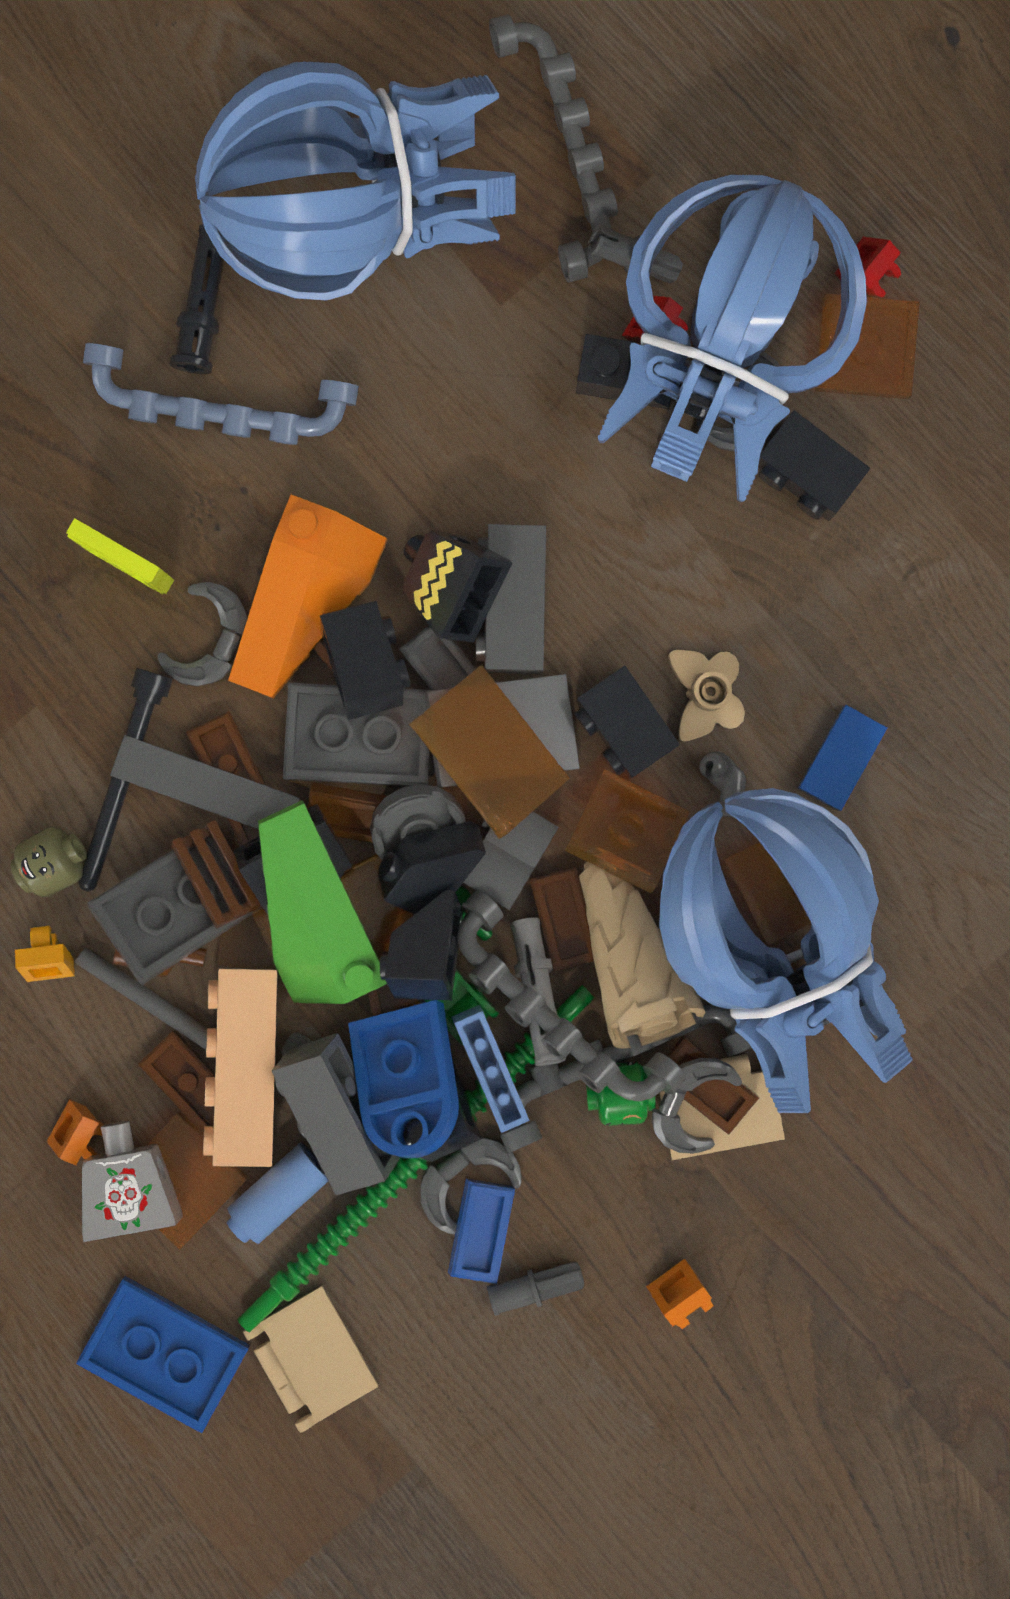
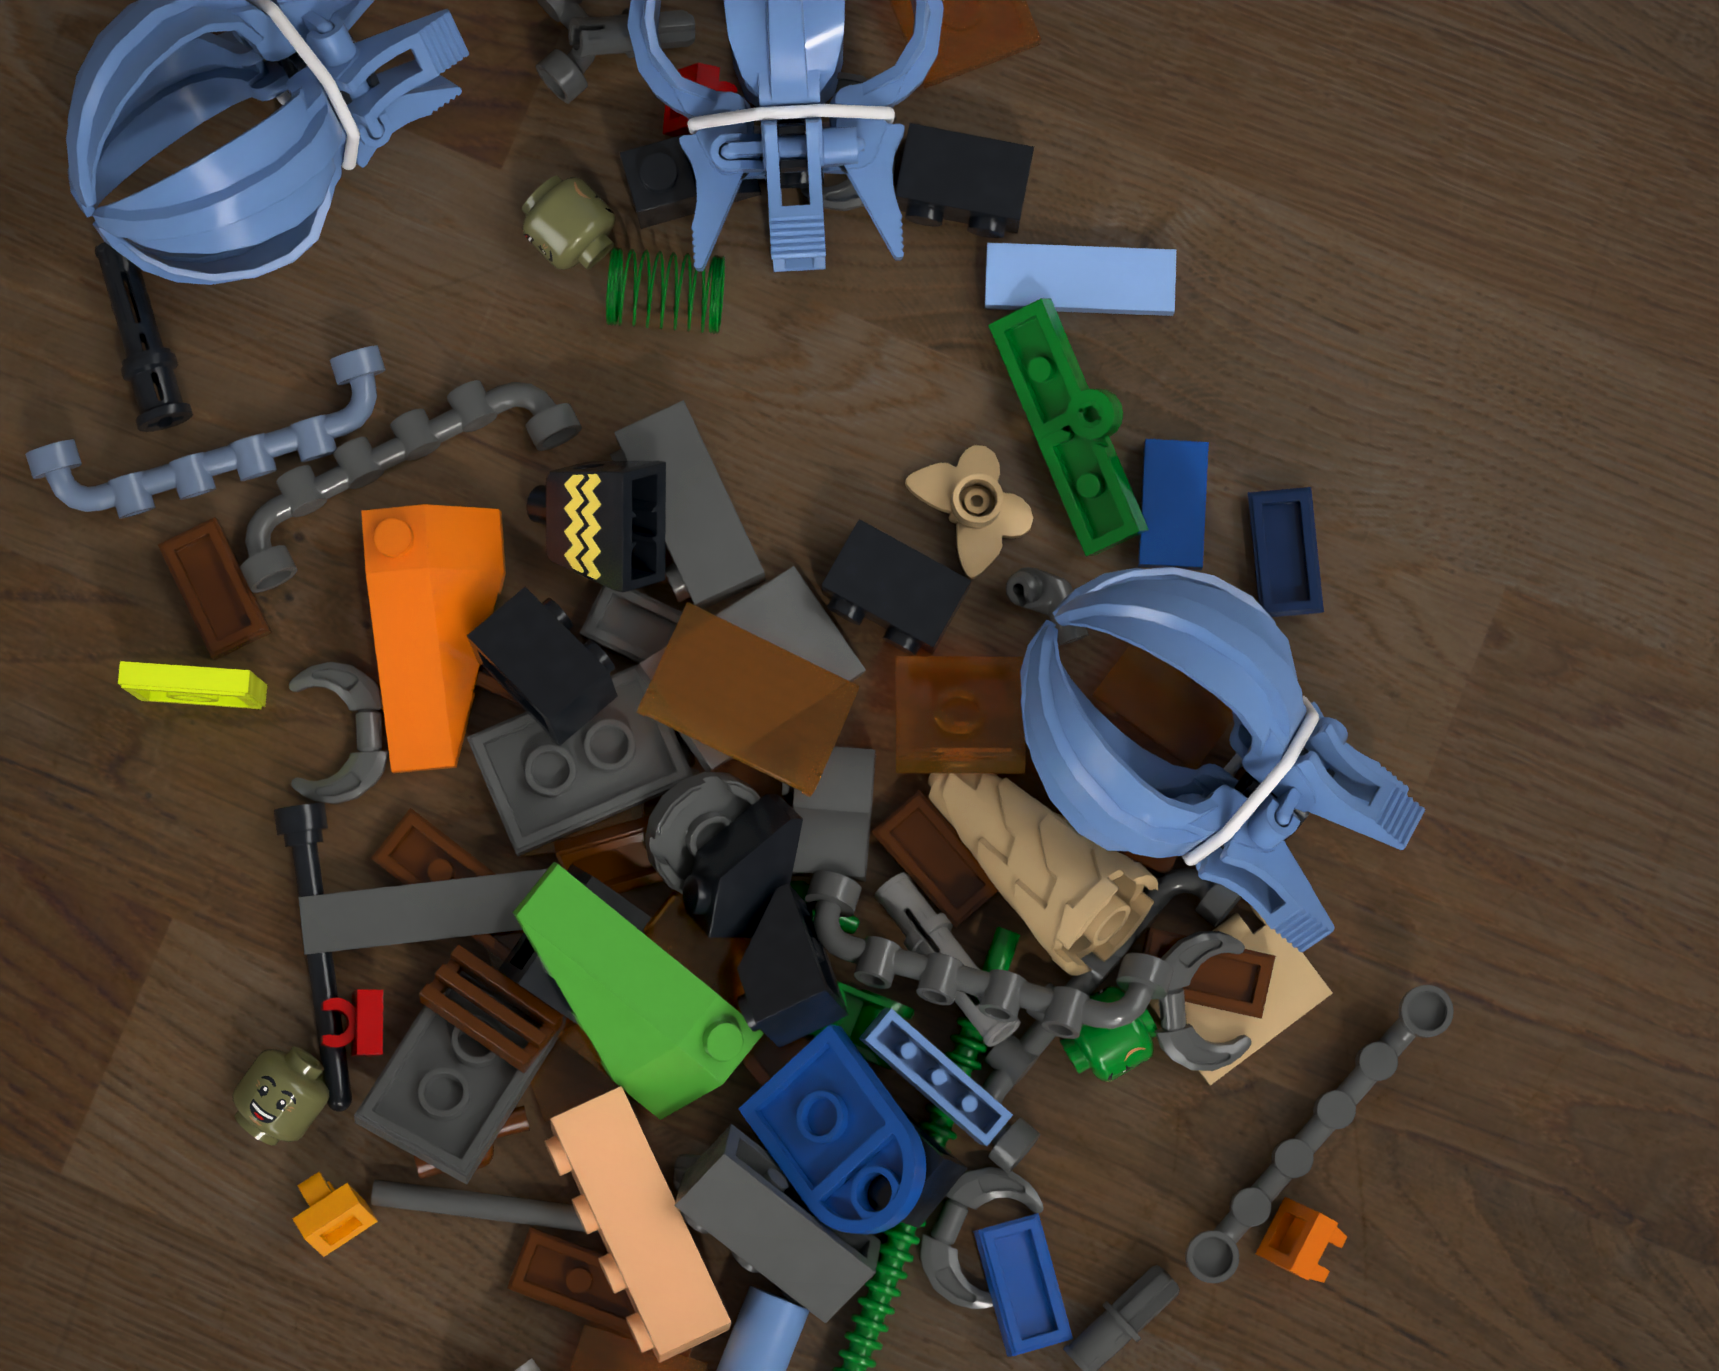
camera: 25 degrees left, 5 degrees down
(125, 842) = (363, 1022): none -> red tile
(170, 497) = (214, 588): none -> reddish brown tile
(351, 462) = (362, 464): none -> dark grey bar
(528, 365) = (568, 223): none -> olive head
(540, 422) = (617, 281): none -> green piece
(617, 1278) = (1214, 1253): none -> dark grey bar
(799, 671) = (1070, 426): none -> green hinge
(856, 573) = (1081, 278): none -> light blue tile
(902, 827) = (1285, 552): none -> dark blue tile

